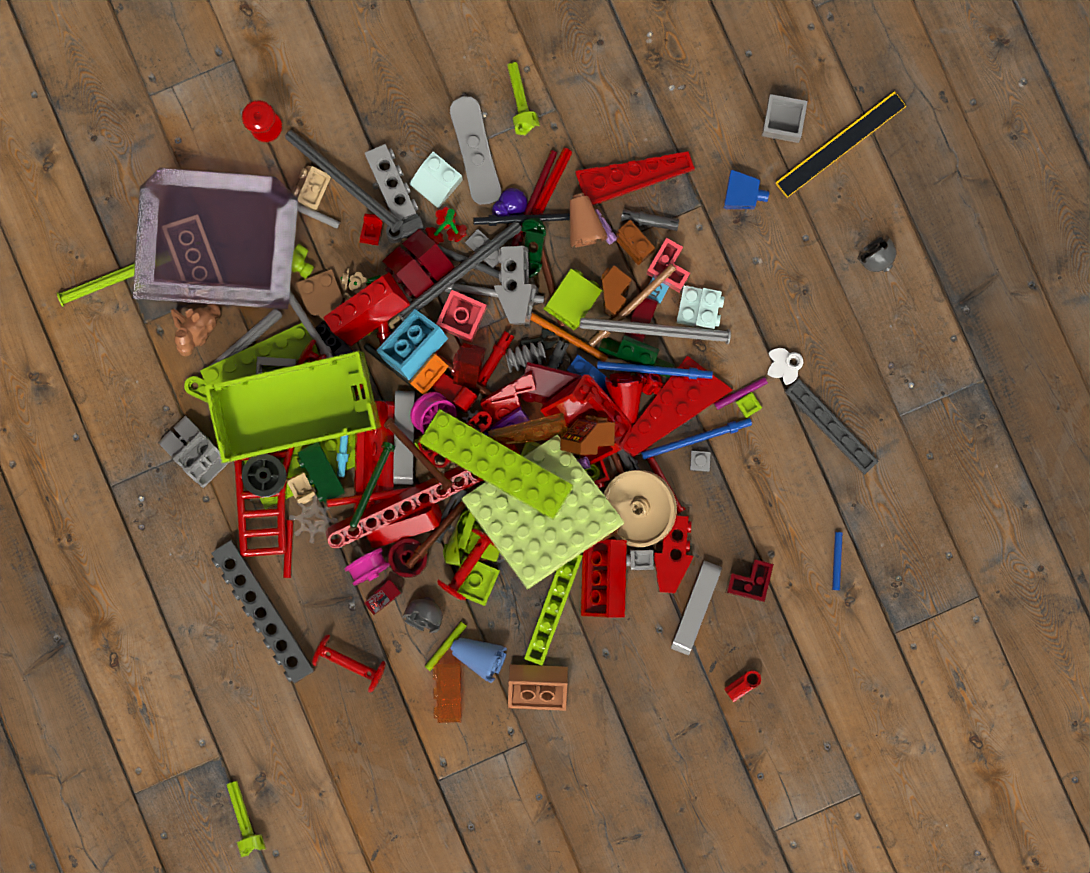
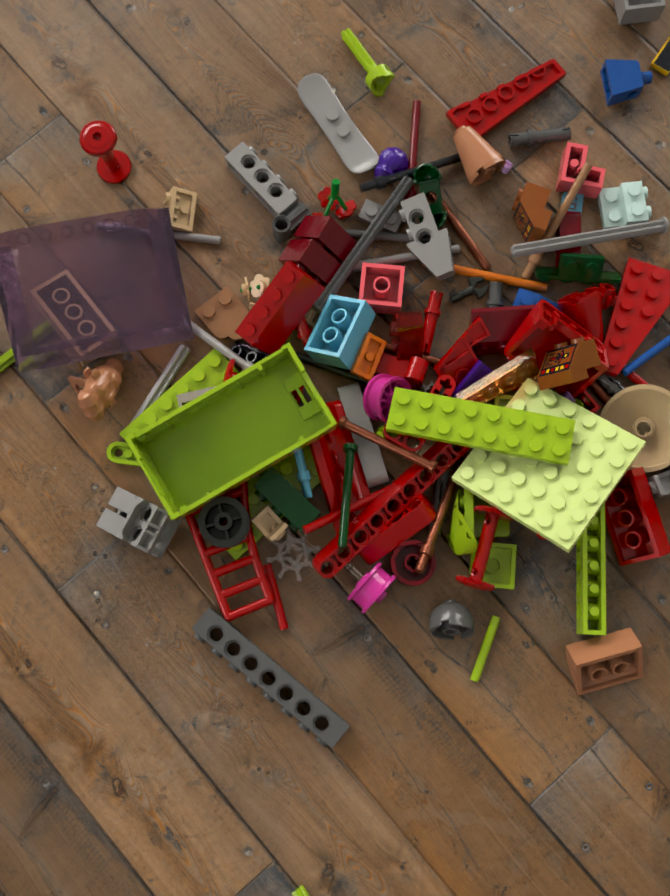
camera: 15 degrees left, 5 degrees down
(298, 263) = (192, 292): lime piece -> none
(344, 181) = (212, 191): dark grey axle -> none
(348, 663) = (387, 704): red hose -> none
(371, 229) = (256, 231): red bracket -> none
(382, 597) = (398, 616): dark red leg -> none
(436, 180) = (307, 162): light aqua slope -> none
(447, 693) = (508, 701): clear orange brick -> none
(480, 656) = (528, 647): medium blue cone -> none
(524, 356) = (462, 308): light grey piece -> none
(552, 181) = (426, 129): red axle -> none
(572, 298) = (491, 236): lime brick -> none
(634, 242) = (533, 161): dark orange window -> none
(692, 373) = (644, 271): blue bar -> none

